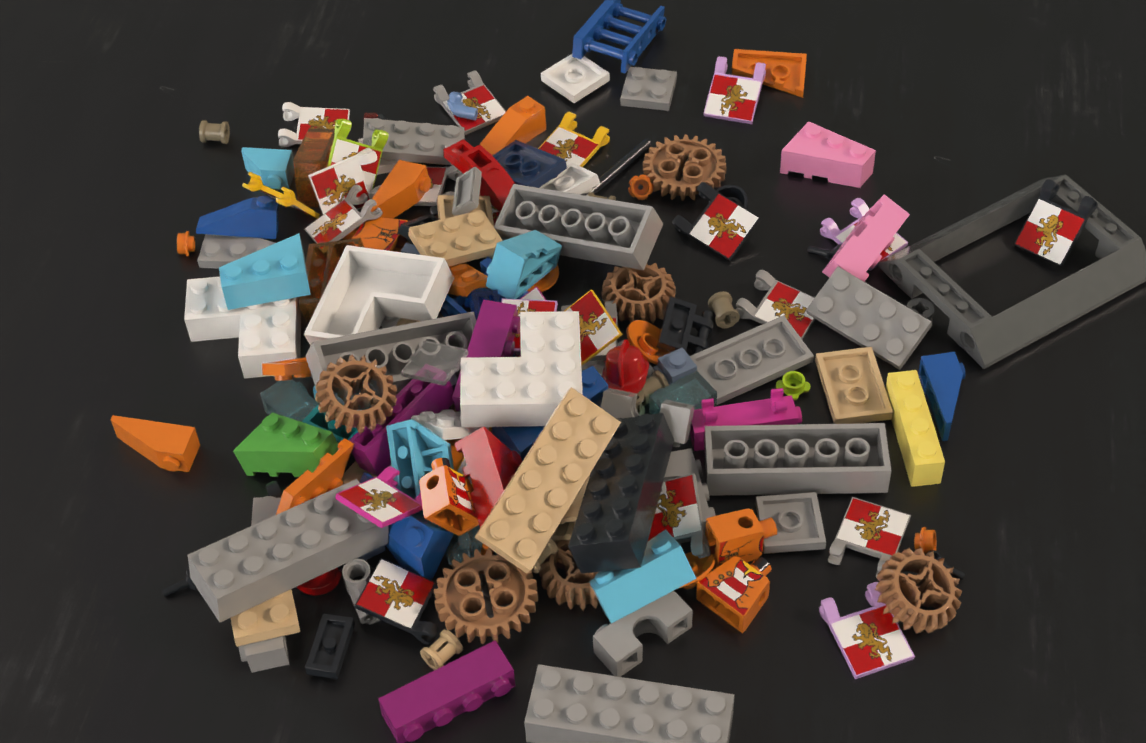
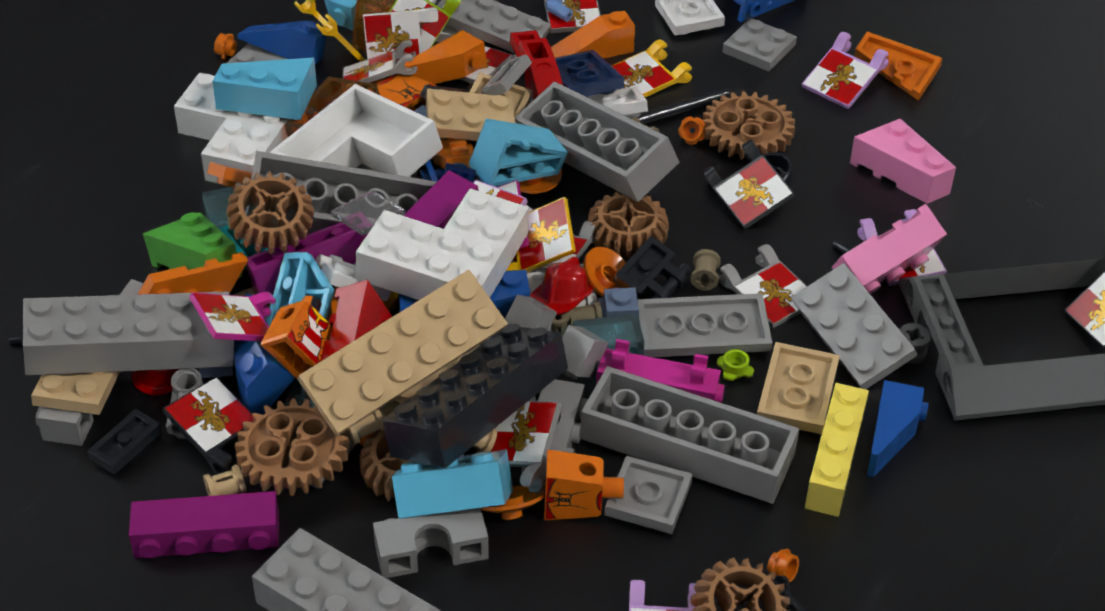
camera: 20 degrees right, 5 degrees down
(164, 444) = (93, 210): orange slope -> none
(736, 590) = (551, 538): orange torso -> none
(869, 530) = (729, 532): flag -> none

